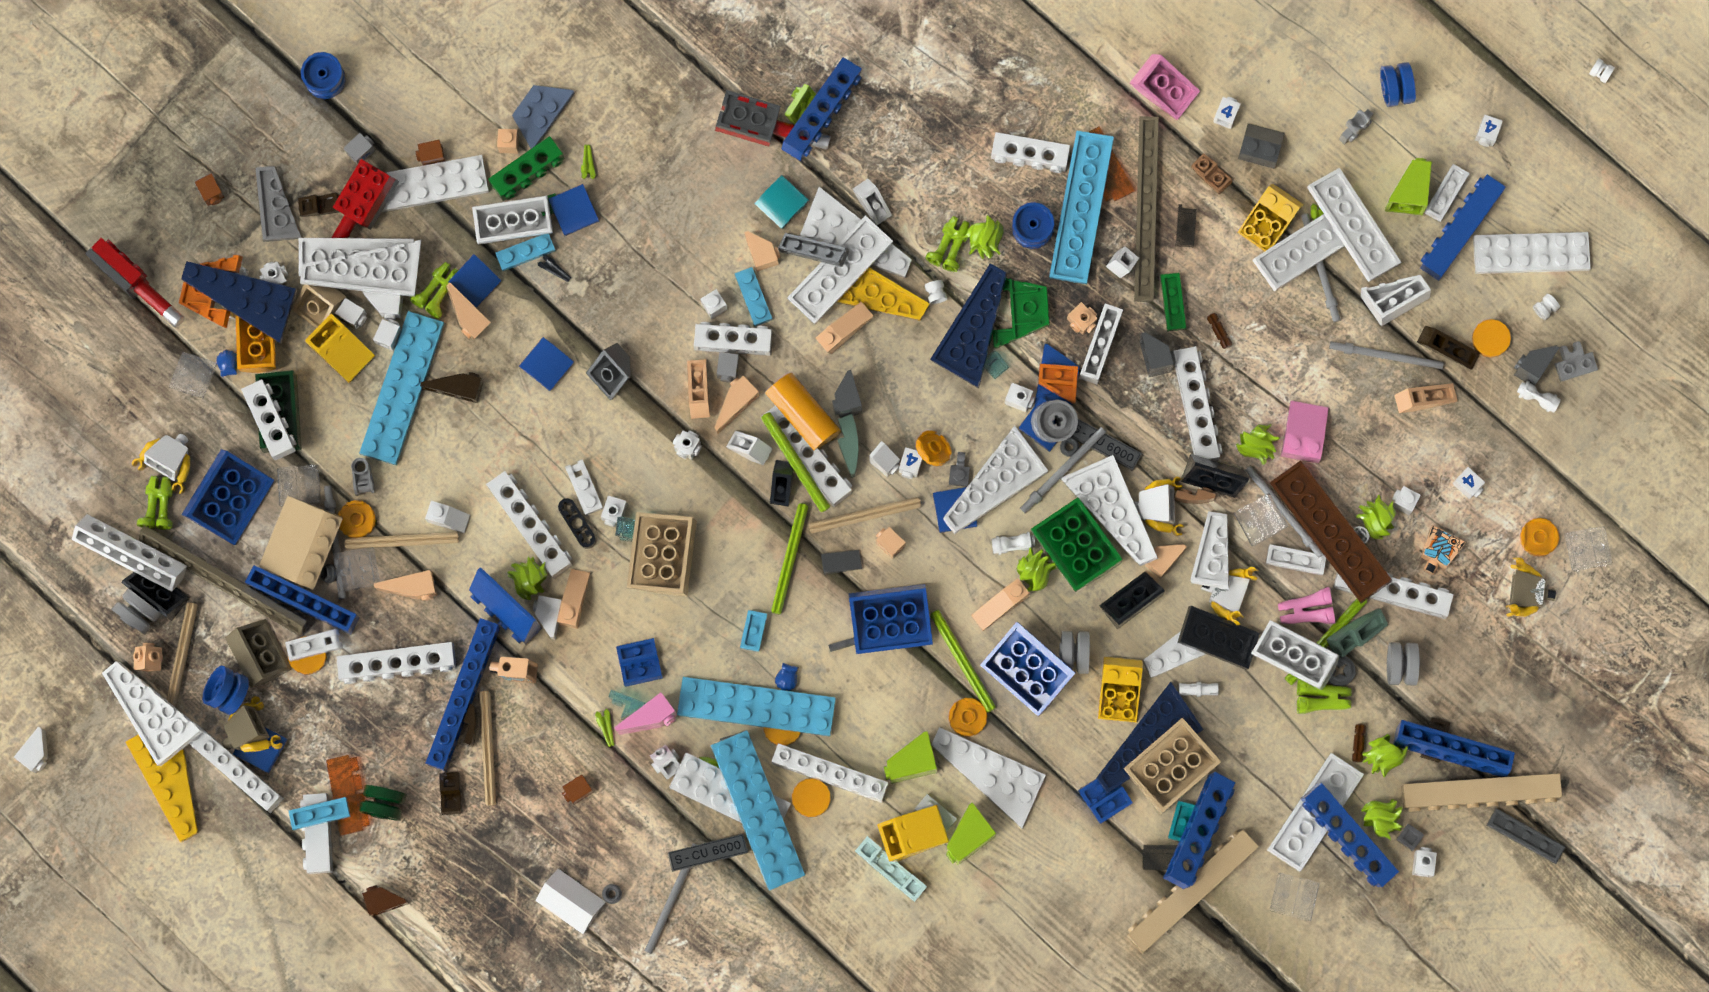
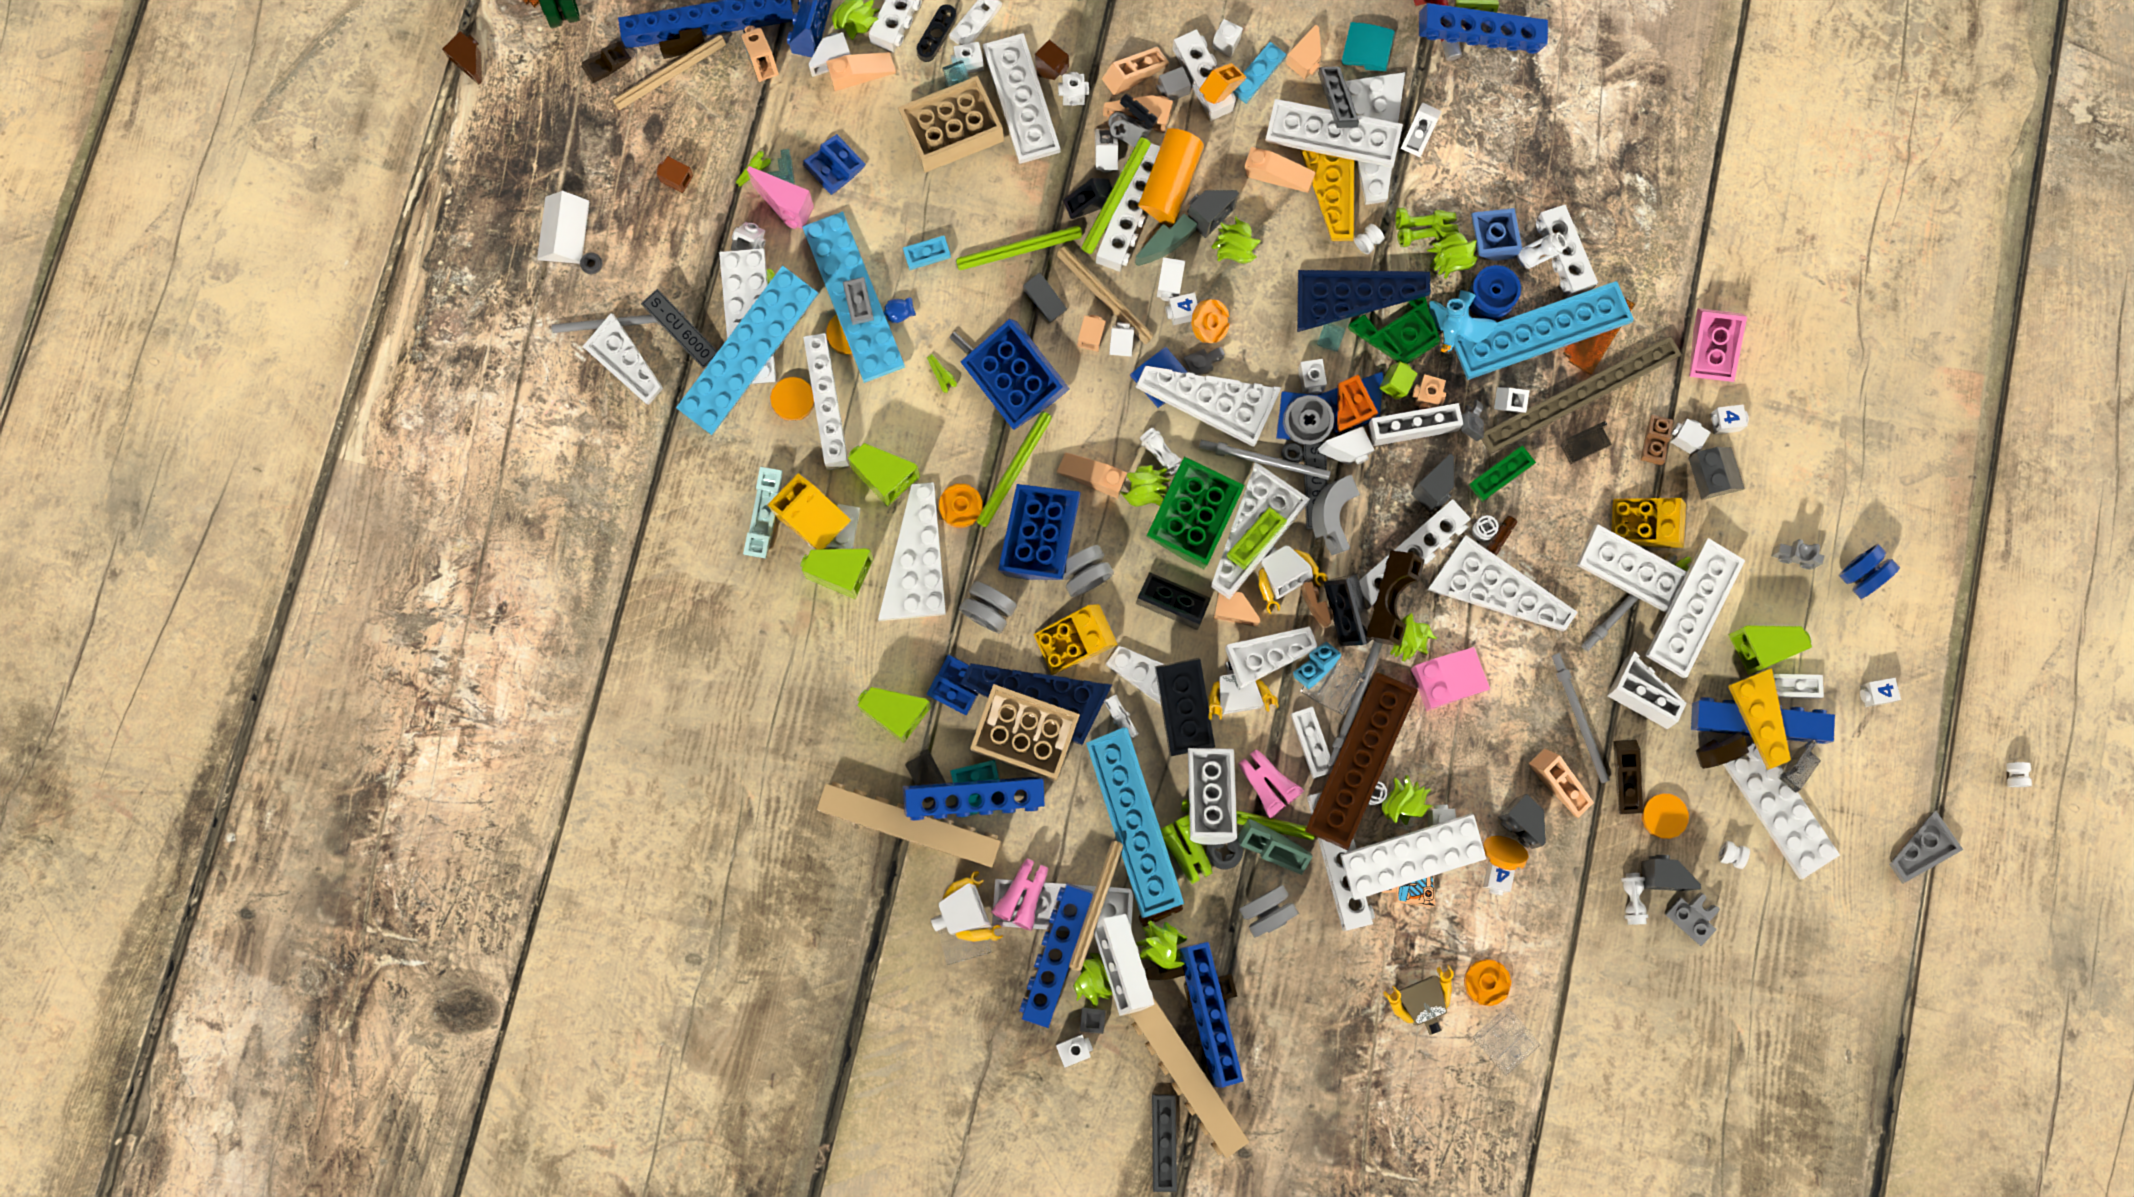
camera: 50 degrees right, 0 degrees up
(660, 449) = (1051, 61): none -> reddish brown slope
(669, 488) = (1021, 98): none -> white plate
(701, 911) = (620, 356): none -> white wing
(737, 406) = (1138, 110): none -> black axle
(745, 421) = (1130, 130): none -> light grey piece
(753, 330) = (1221, 83): none -> light orange slope
(766, 704) = (858, 301): none -> light grey plate
(857, 674) = (944, 377): none -> lime piece
(883, 393) = (1236, 242): none -> lime hair
(910, 523) = (1121, 339): none -> white brick
(989, 196) = (1497, 234): none -> medium blue slope
(1022, 162) = (1550, 246): none -> white piece
(1041, 266) = (1456, 321): none -> medium azure animal
(1059, 336) = (1398, 380): none -> lime brick
(1063, 742) = (987, 607): none -> light grey wheel
(1090, 402) = (1348, 447): none -> white slope
(1101, 854) = (893, 710): none -> lime slope
(1123, 301) = (1472, 423): none -> flat silver plate
(1123, 511) = (1256, 538): none -> lime tile
(1130, 447) = (1327, 513): none -> light grey arch
(1207, 343) = (1481, 530): none -> white wheel
(1209, 423) = (1400, 572): none -> dark brown arch
(1223, 148) = (1689, 436): none -> white brick
(1242, 525) = (1320, 663): none -> medium azure slope
(1249, 360) = (1489, 582): none -> white wing
(1280, 885) = (964, 912): none -> white torso
(1283, 723) = (1134, 823): none -> medium azure plate
(1292, 849) = (1006, 905): none -> bright pink piece
(1332, 787) = (1096, 906): none -> tan axle
(1384, 790) = (1123, 965): none -> white brick
(1401, 773) = (1152, 973): none -> dark brown slope
(1421, 536) = (1413, 856): none -> white plate
(1440, 440) = (1526, 821): none -> dark grey slope
(1454, 469) = (1505, 852): none -> light orange tile
(1456, 225) = (1762, 715): none -> yellow wing
(1468, 273) = (1718, 753): none -> dark brown slope
(1510, 221) = (1800, 767): none -> clear smoke panel
(1618, 169) = (1925, 849): none -> light grey wing

